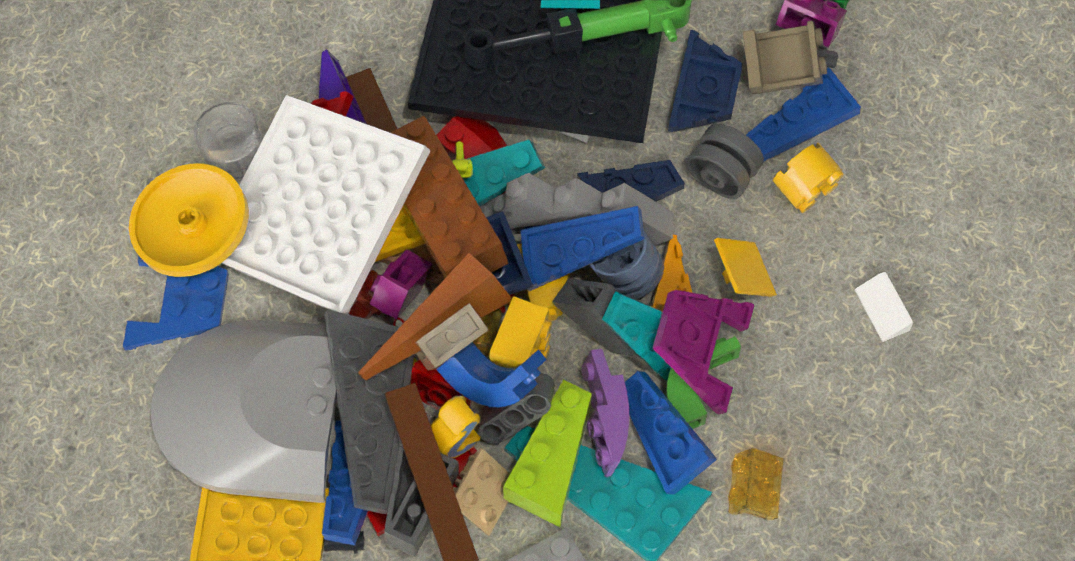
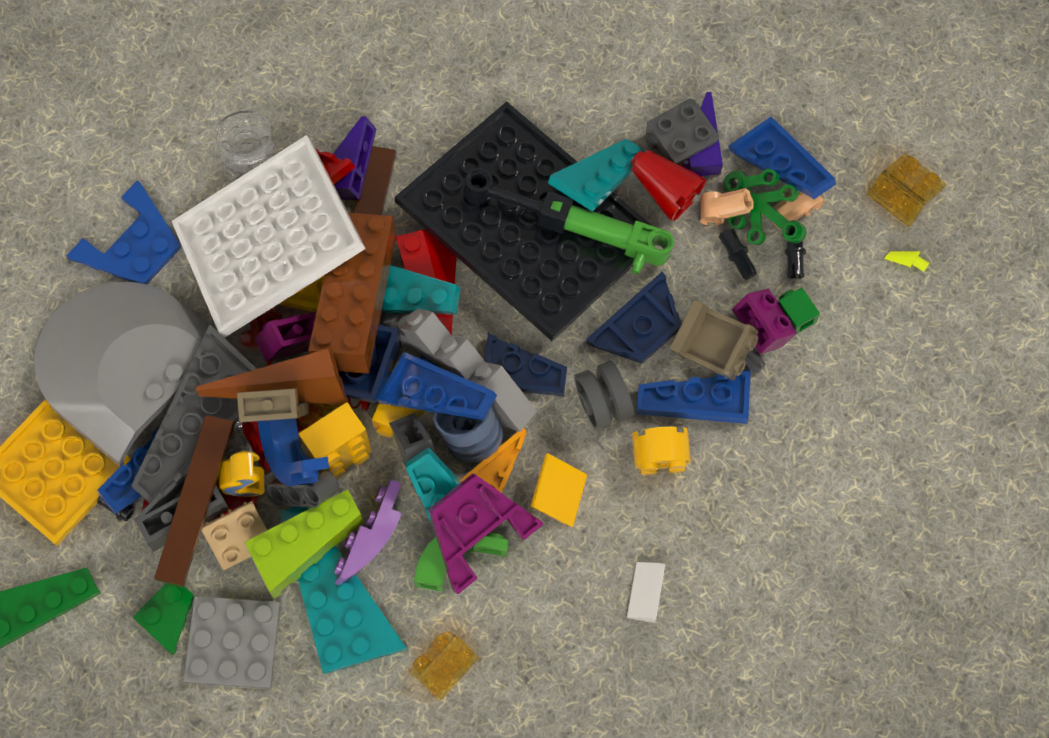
camera: 35 degrees right, 5 degrees up
(188, 220) = (174, 188): yellow dish -> none
(463, 165) = (395, 273): neon yellow hand -> none
(667, 437) = (398, 586): blue wing -> none

